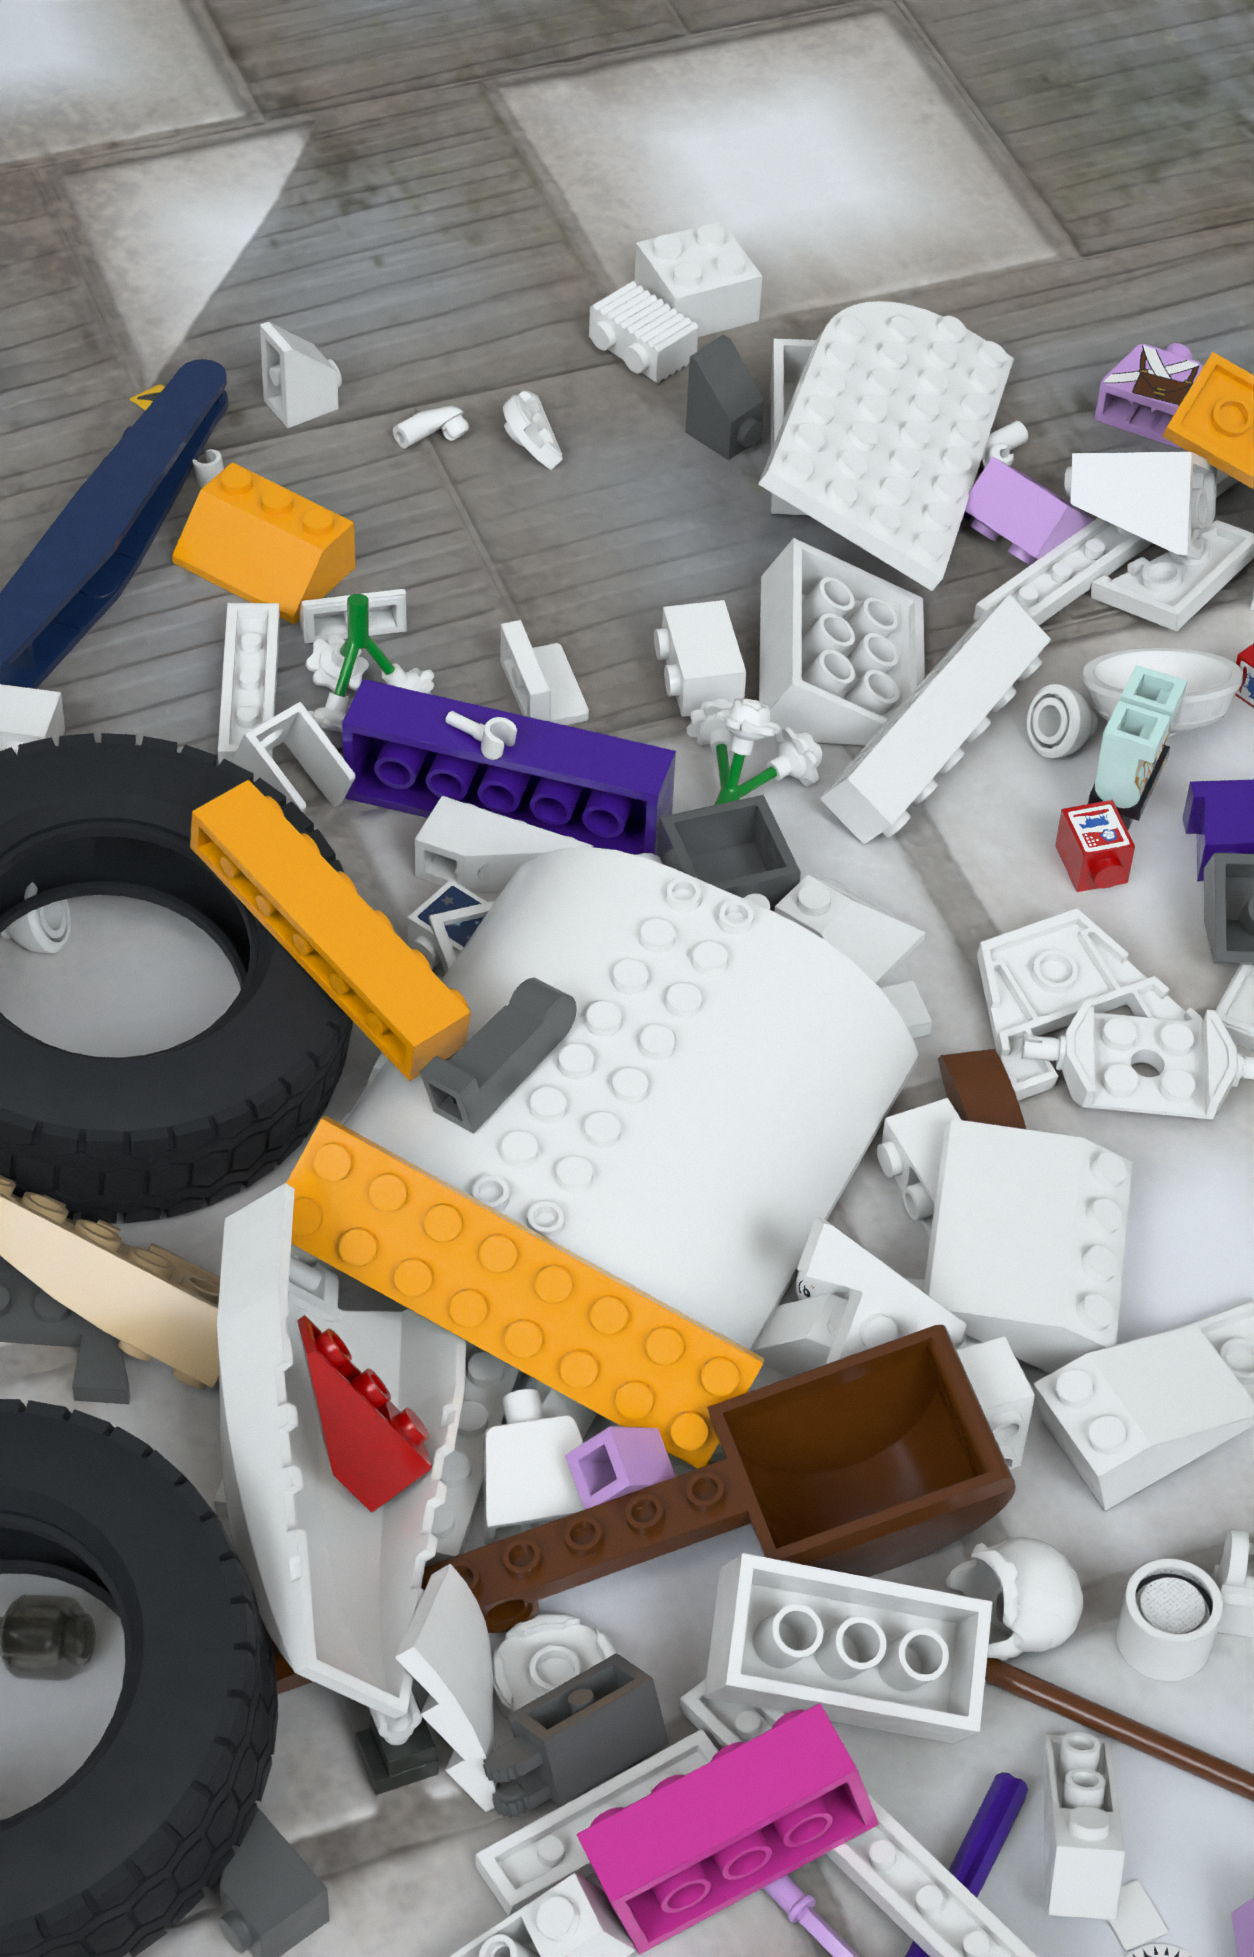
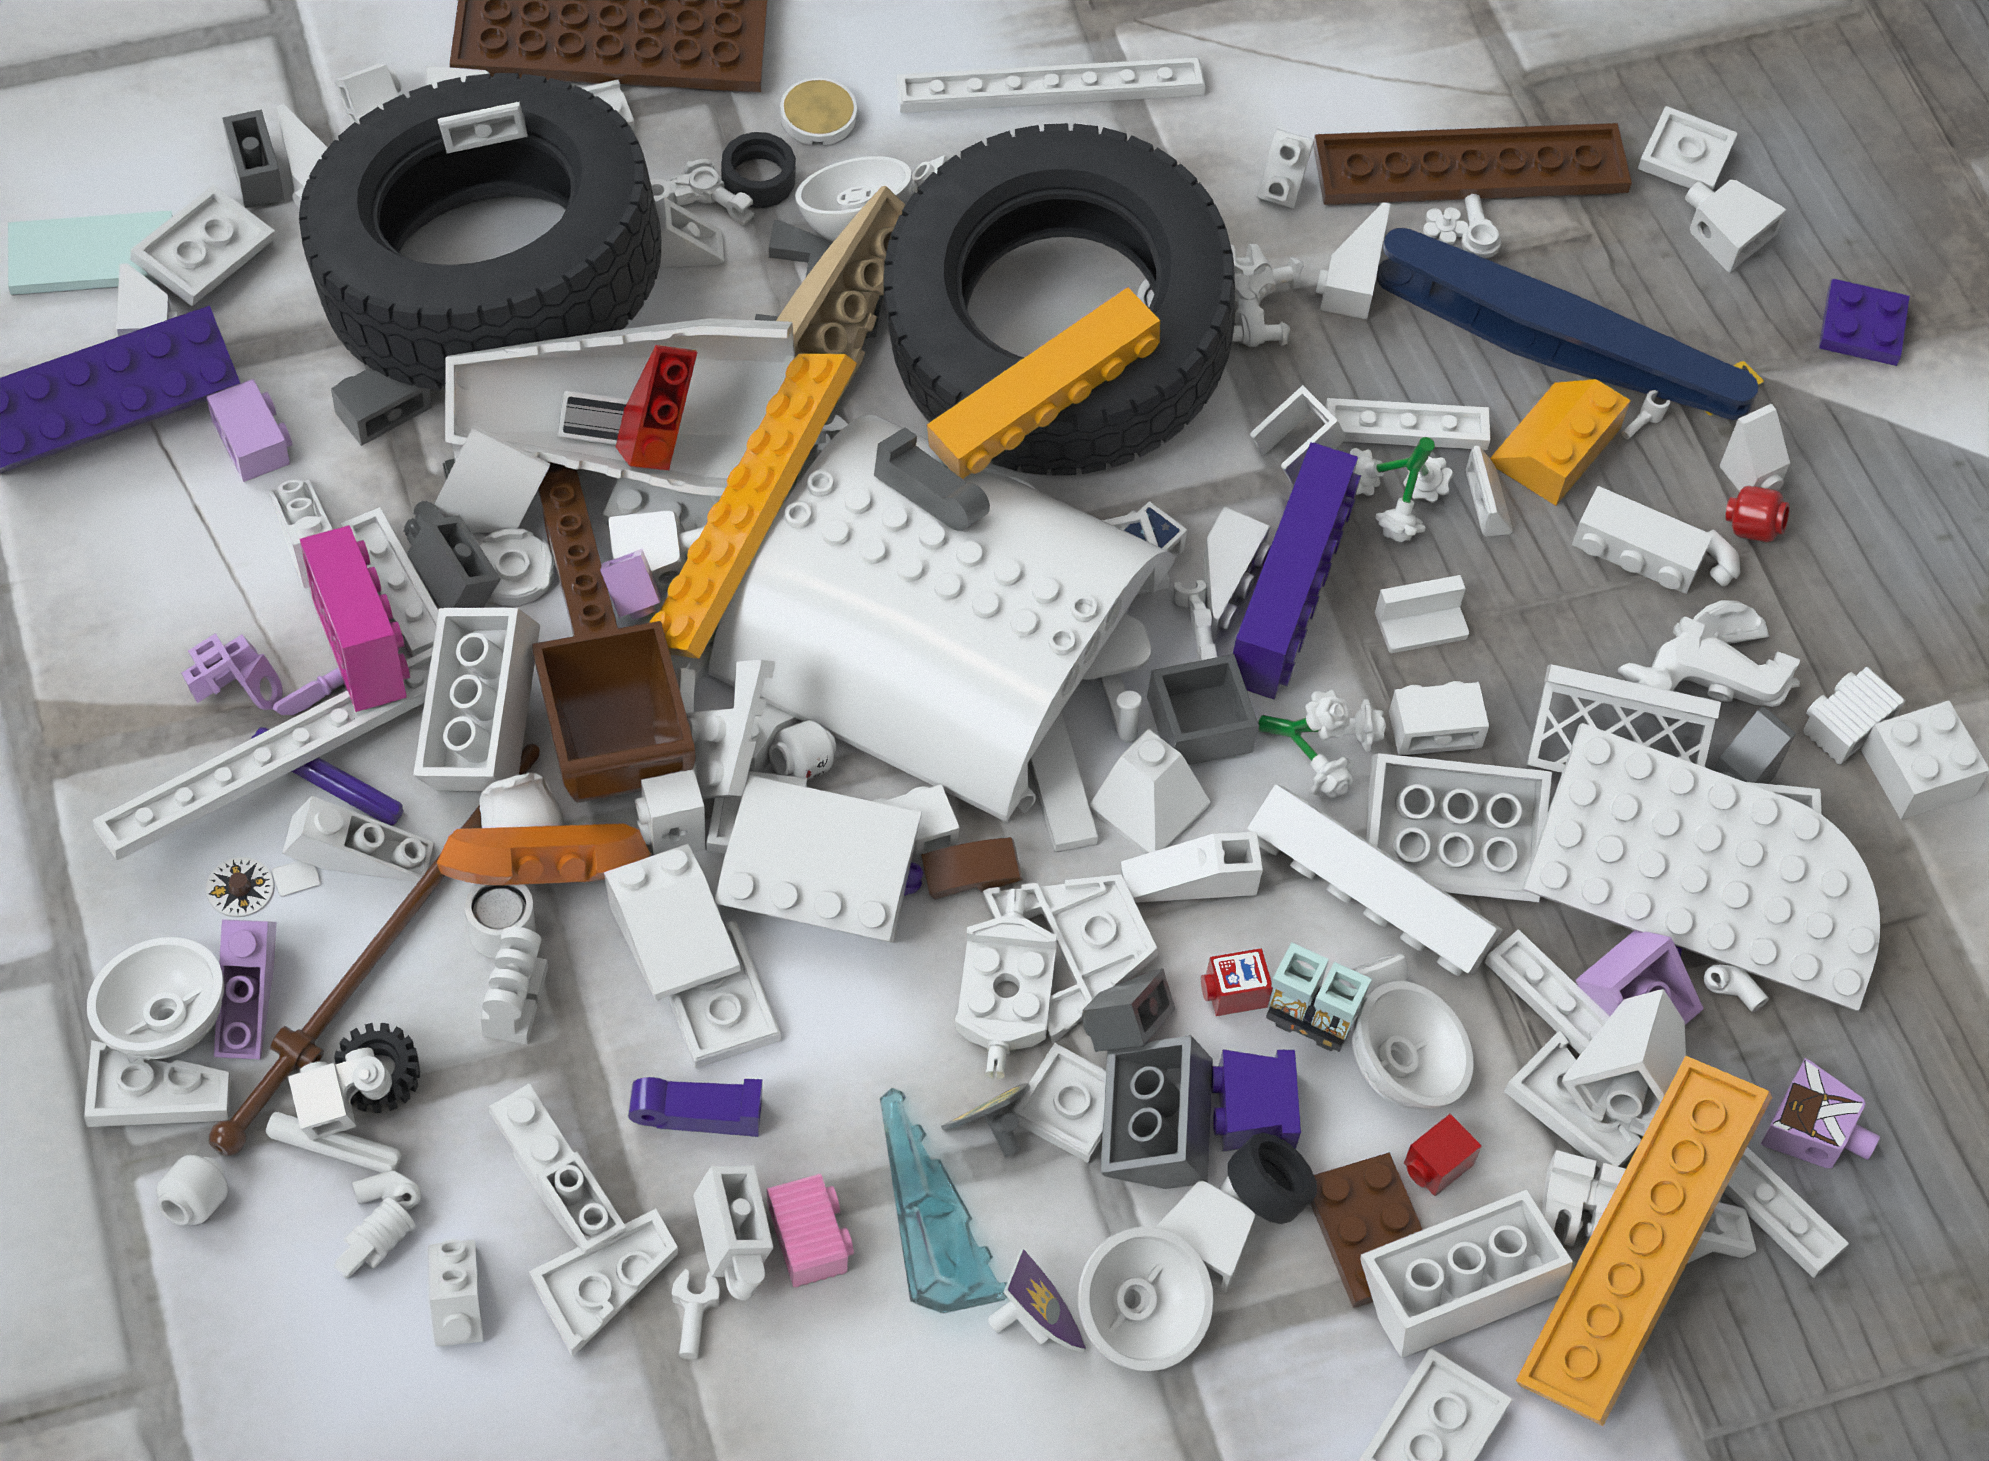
camera: 90 degrees right, 10 degrees up
(74, 294) = (1864, 322): none -> dark purple plate
(332, 1525) = (590, 417): none -> slope
(373, 386) = (1758, 513): none -> red head
(417, 483) = (1641, 540): none -> white brick
(492, 734) = (1292, 524): white hand -> none
(598, 428) = (1716, 667): none -> white animal
(667, 485) = (1626, 695): none -> white fence
(952, 875) = (1197, 869): none -> white slope
(1124, 1581) = (540, 853): none -> orange brick
(1171, 936) = (1129, 1012): none -> dark grey slope

